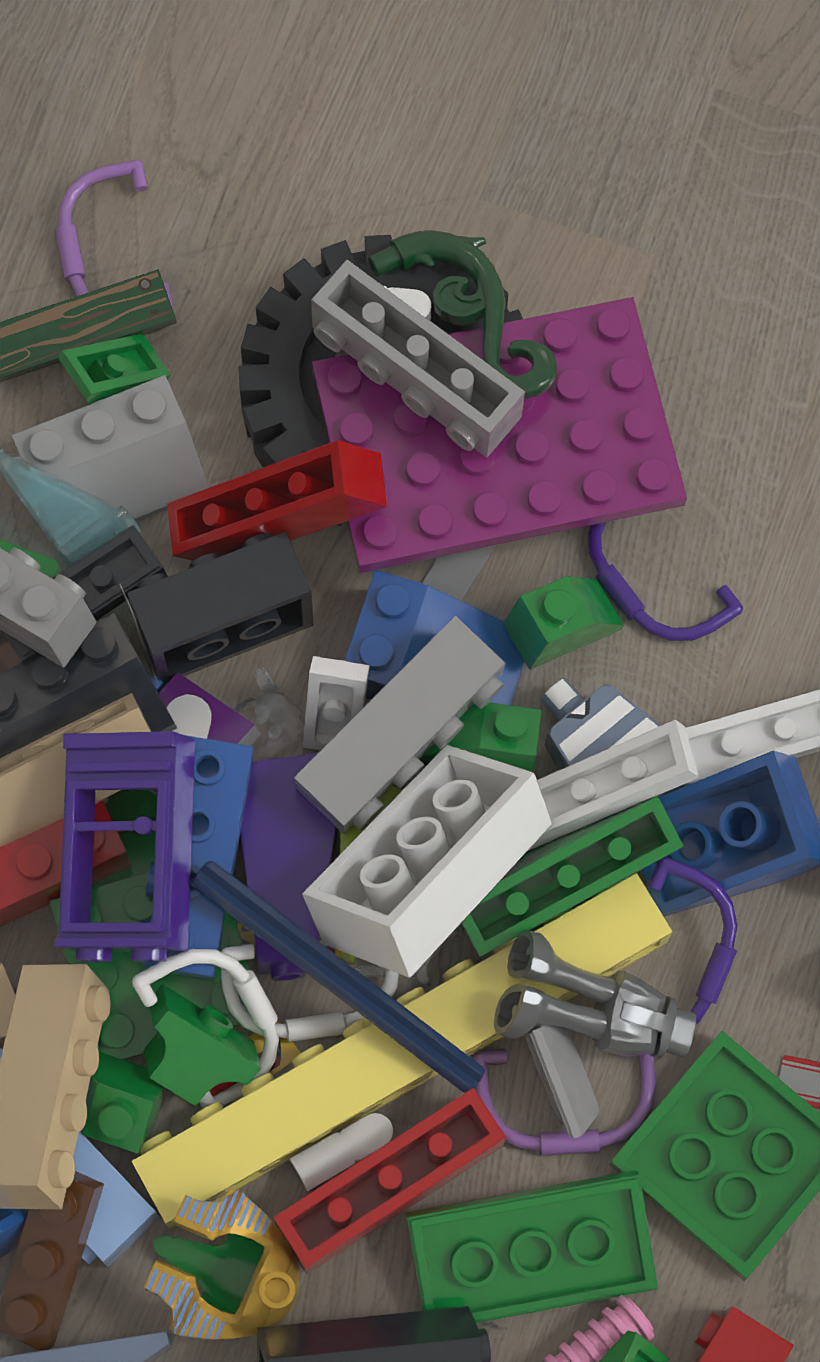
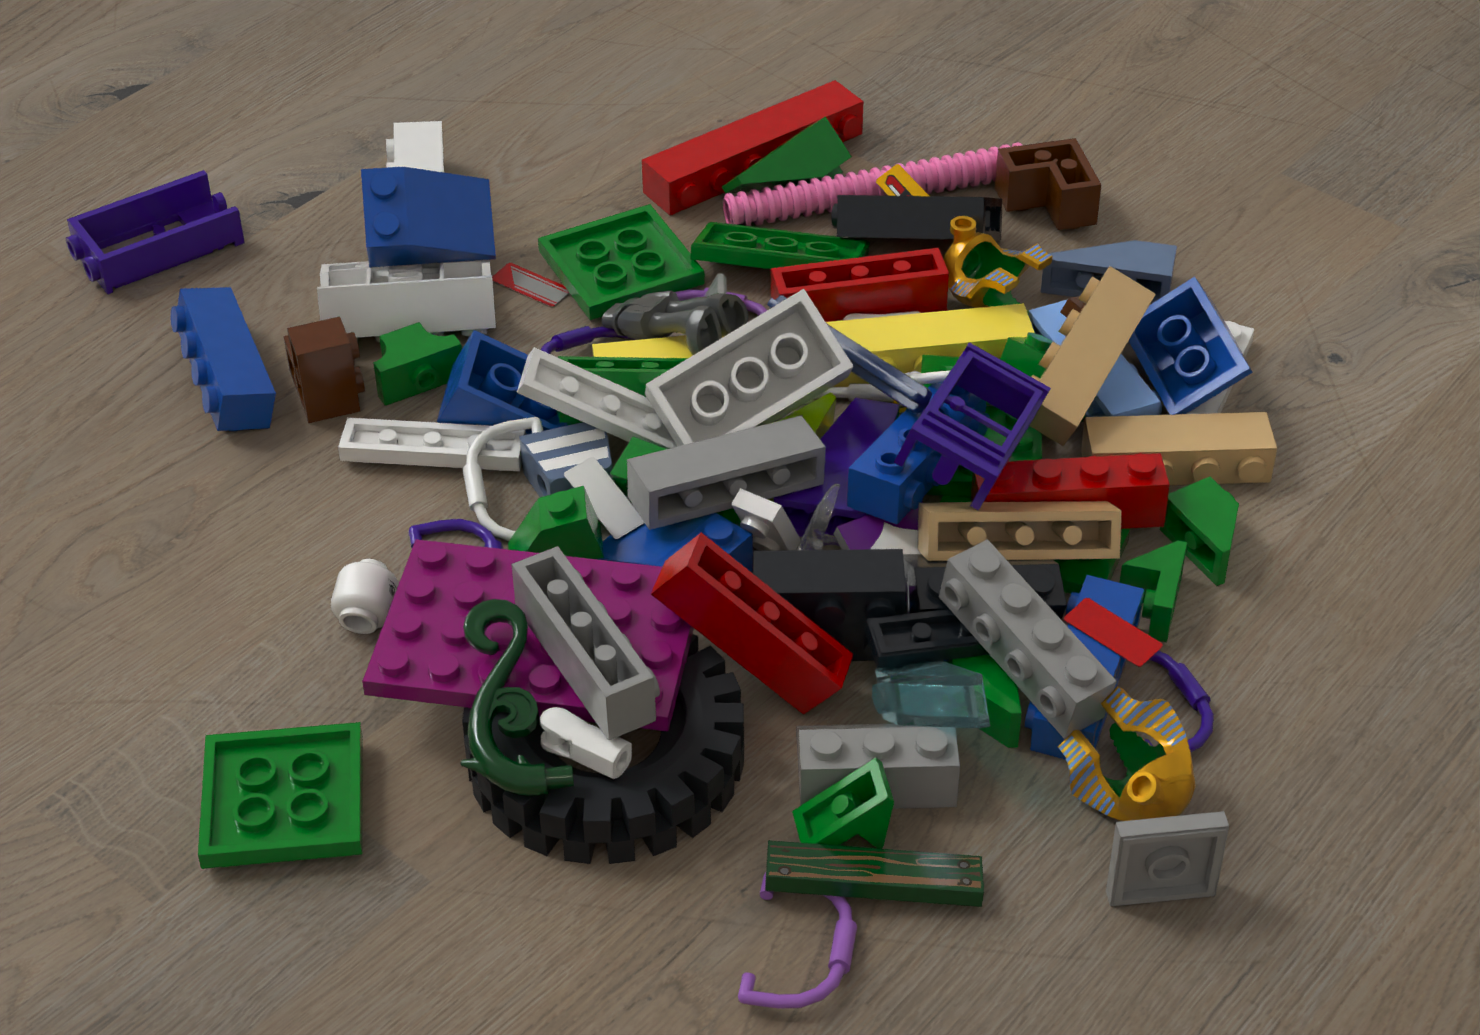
camera: 155 degrees left, 30 degrees down
(538, 690) = (607, 499): none -> white sticker
(662, 217) = (281, 795): none -> green plate
(685, 663) = (473, 474): none -> white piece
(724, 473) = (363, 595): none -> white head

